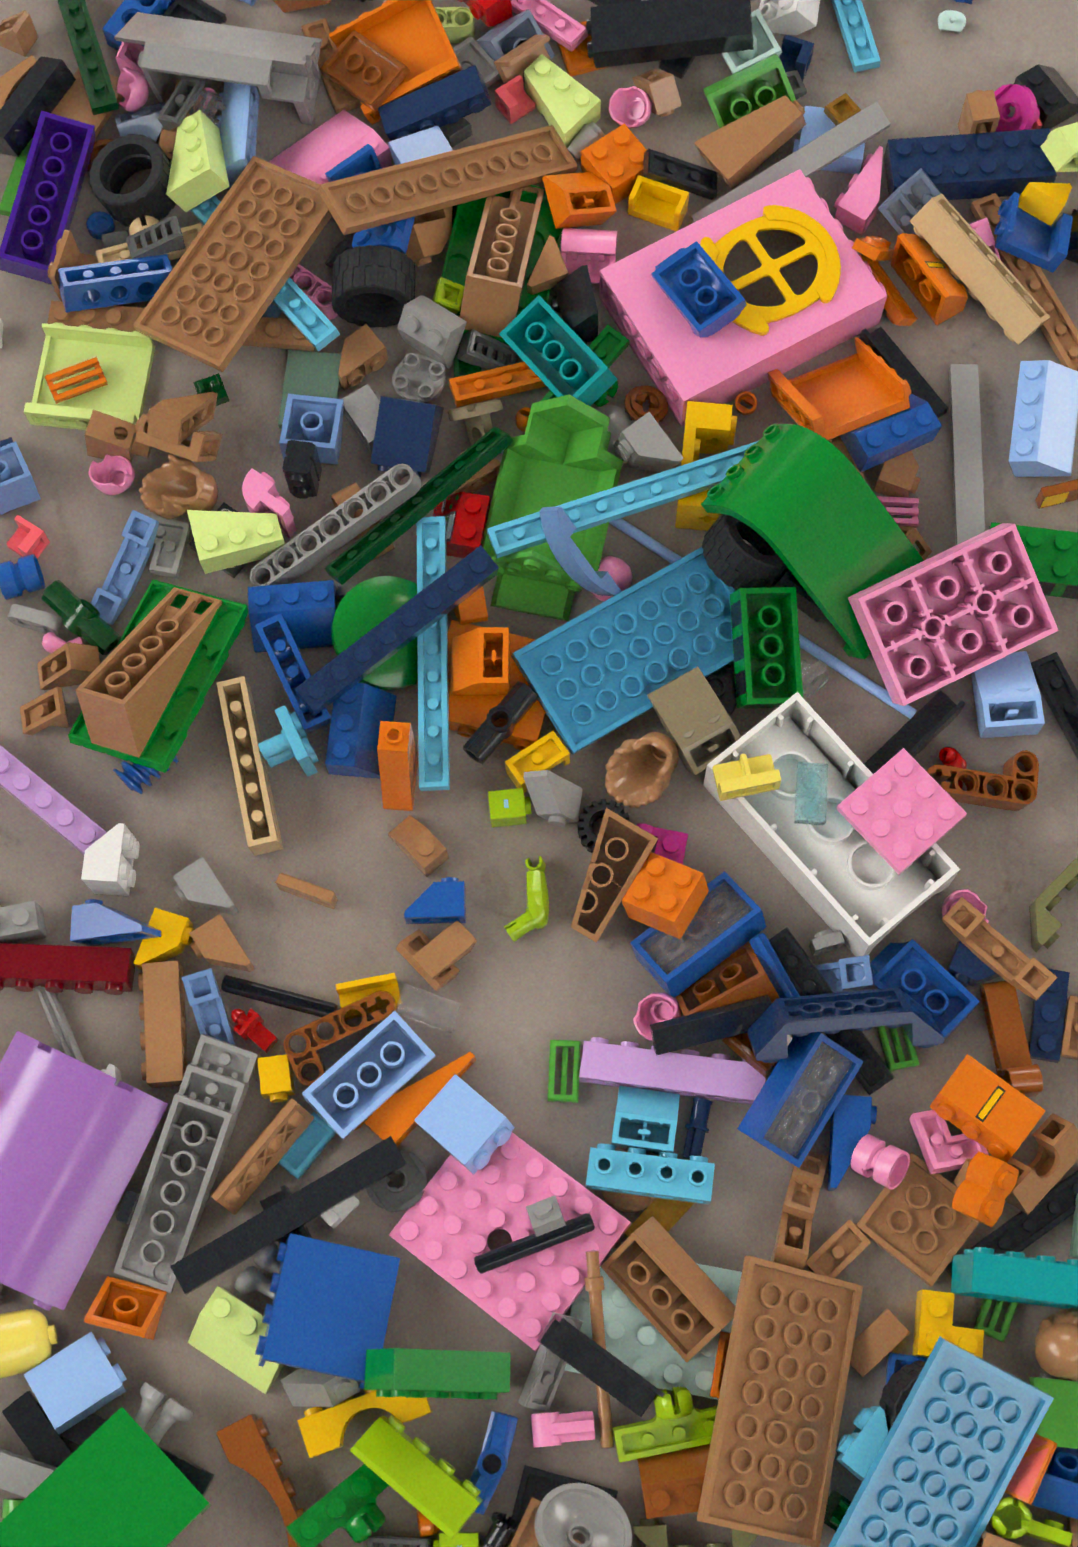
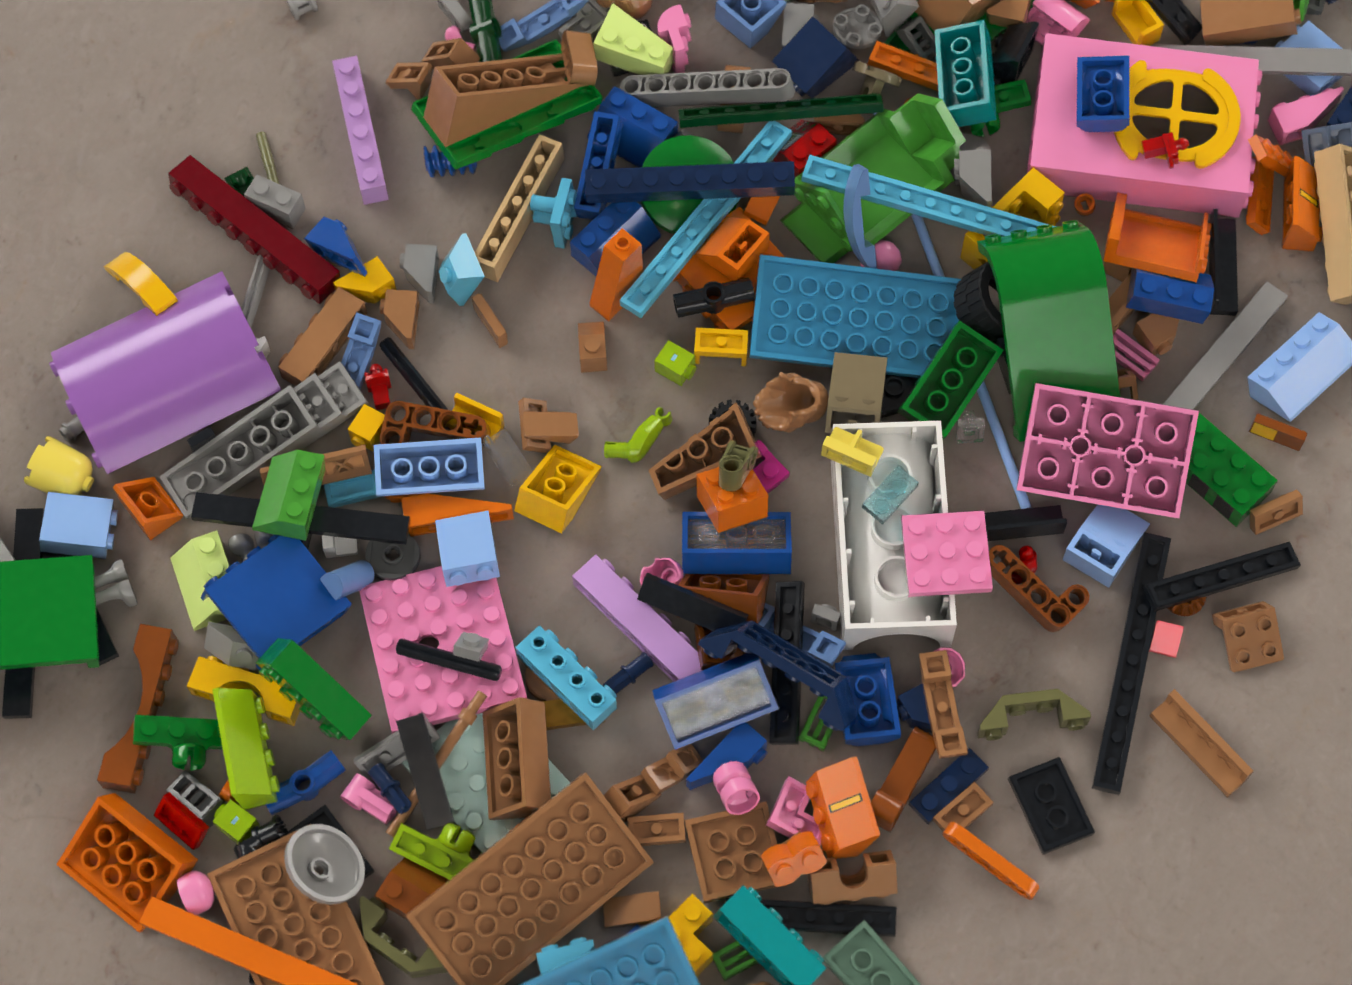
camera: 35 degrees right, 5 degrees down
(110, 862) = (372, 205): white slope -> none
(194, 583) = (579, 57): none -> medium nougat beam
(245, 863) = (461, 271): none -> medium azure slope
(264, 1202) = (290, 494): none -> bright green slope
(302, 469) = (719, 32): black brick -> none
(378, 1236) = (348, 579): none -> medium blue brick
(439, 903) = (573, 393): blue slope -> none
(496, 1003) = (556, 488): none -> yellow slope
(553, 797) = (711, 376): light grey slope -> none
(562, 1097) = (553, 586): bright green tile -> none
(577, 1405) = (390, 788): none -> dark blue axle
(637, 396) = (1007, 147): dark orange gear -> none
(645, 1120) = (595, 640): medium azure slope -> none
(654, 864) = (736, 465): none -> olive piece
(773, 966) = (770, 604): blue axle -> none
(791, 301) = (1164, 145): none -> red piece
(841, 109) = (1333, 39): pearl gold tile -> none

